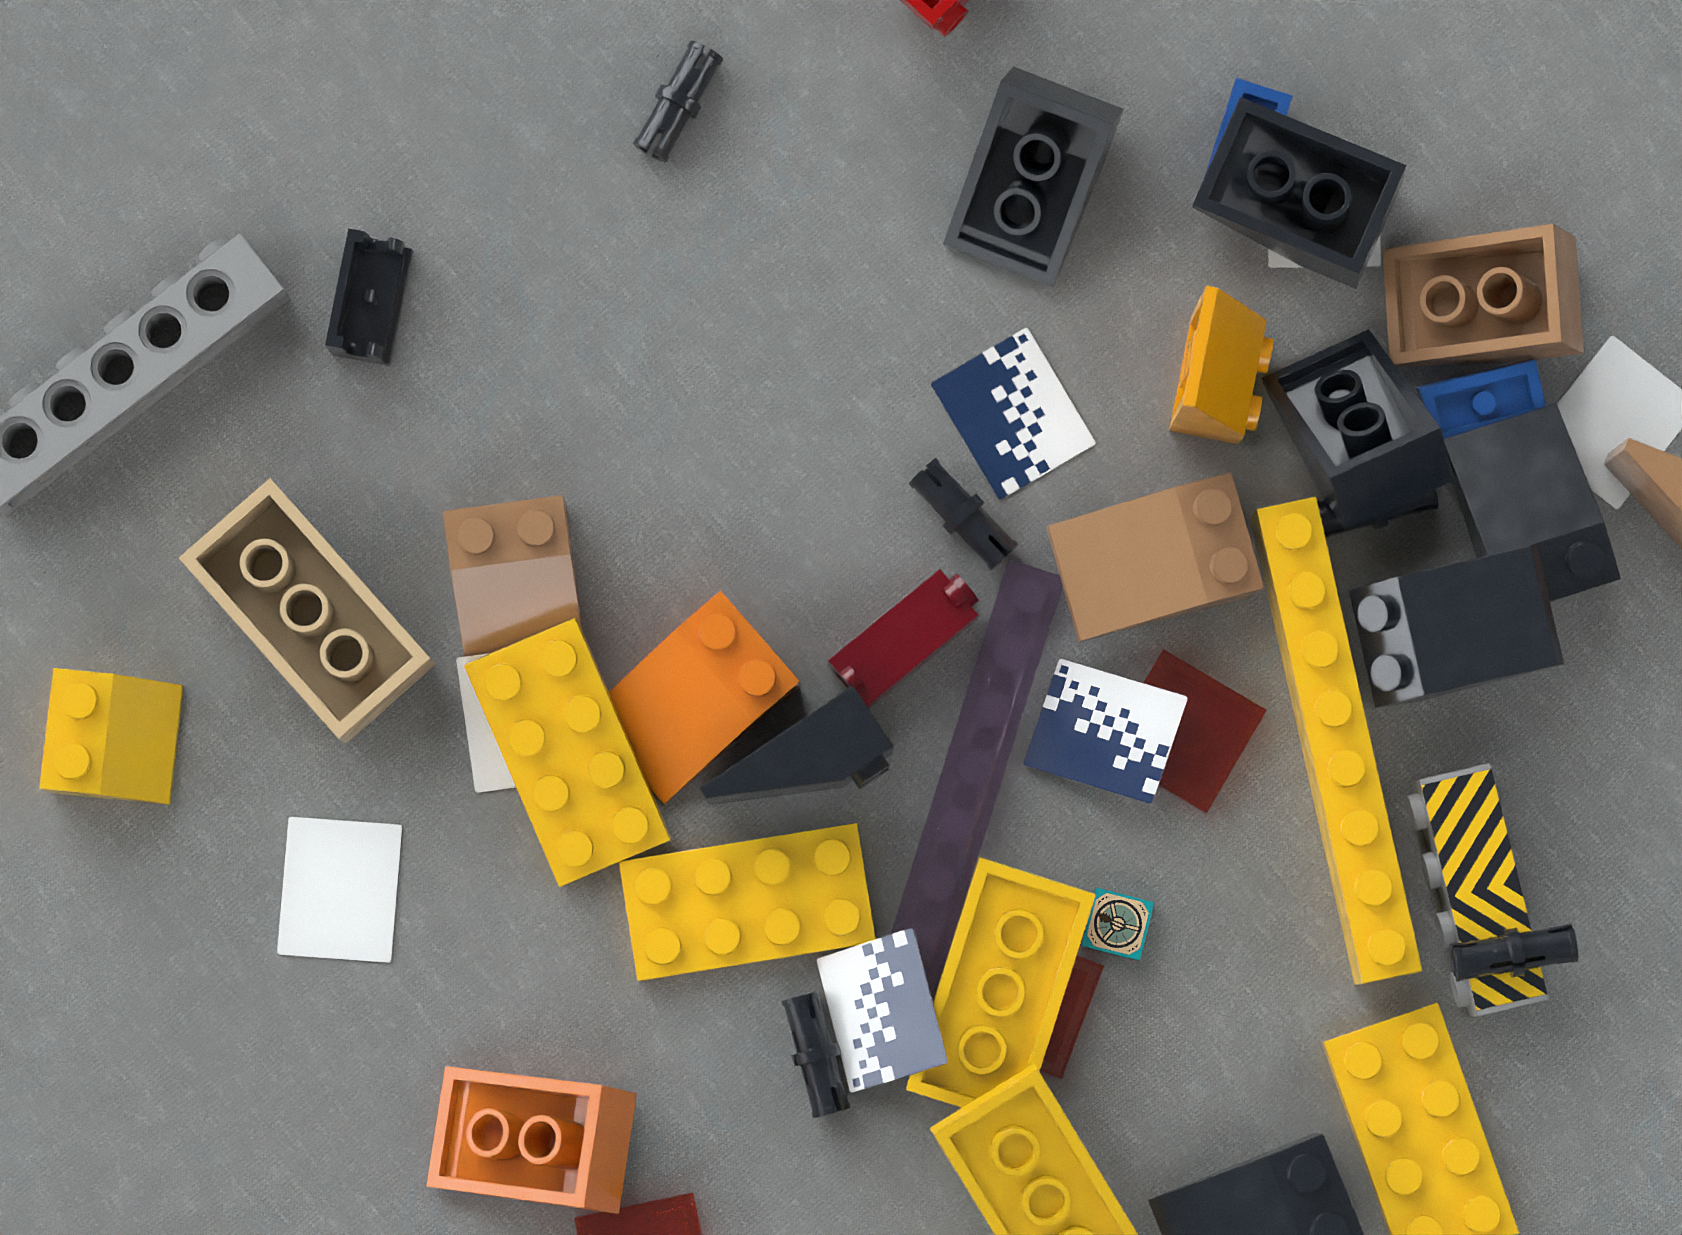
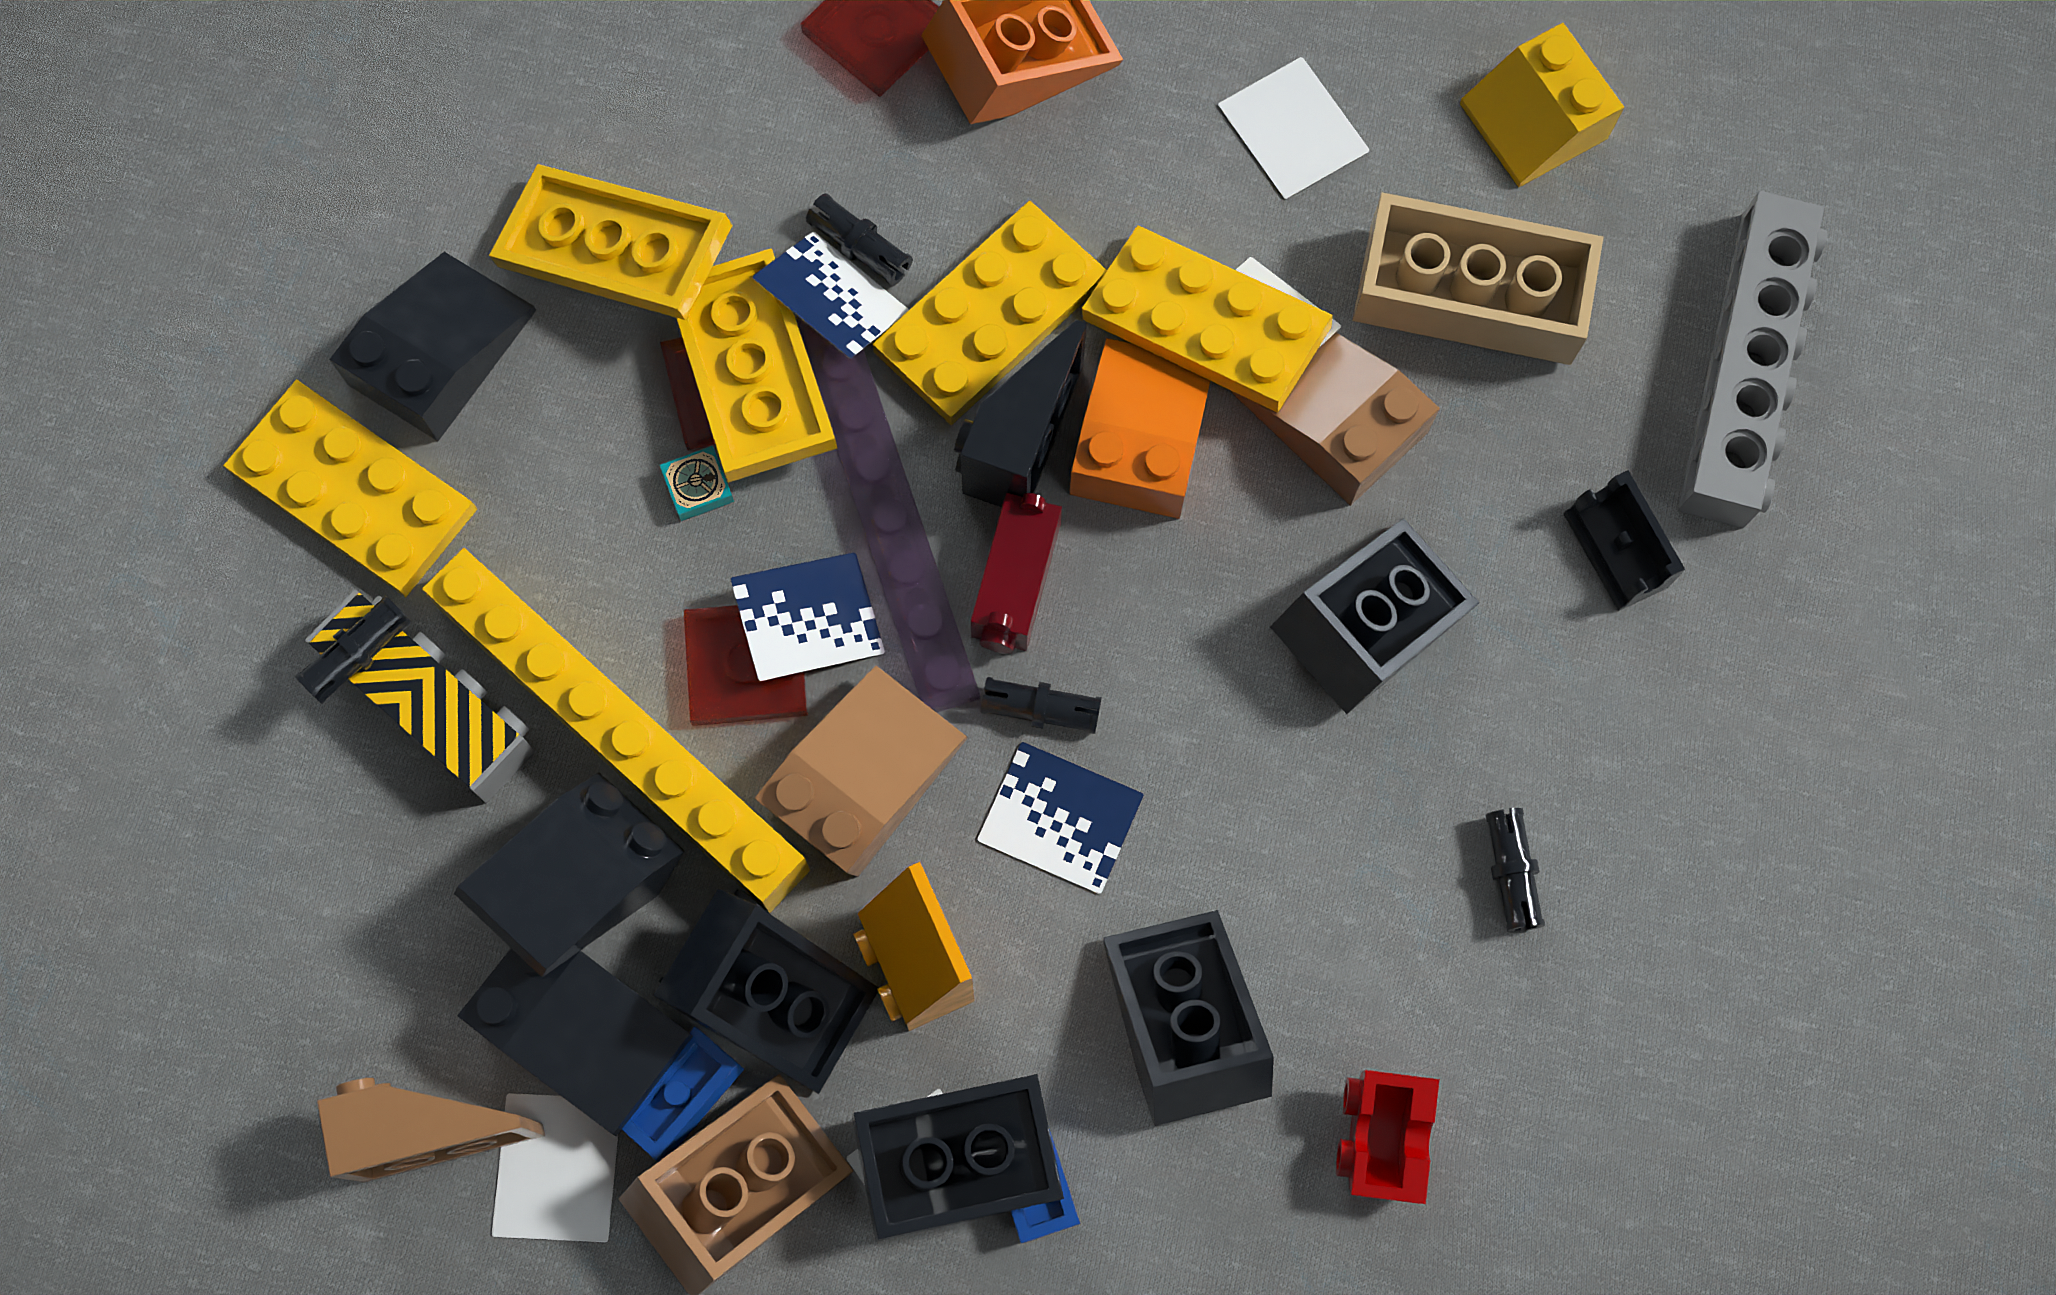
camera: 145 degrees right, 10 degrees down
(627, 386) = (1373, 615): none -> black slope

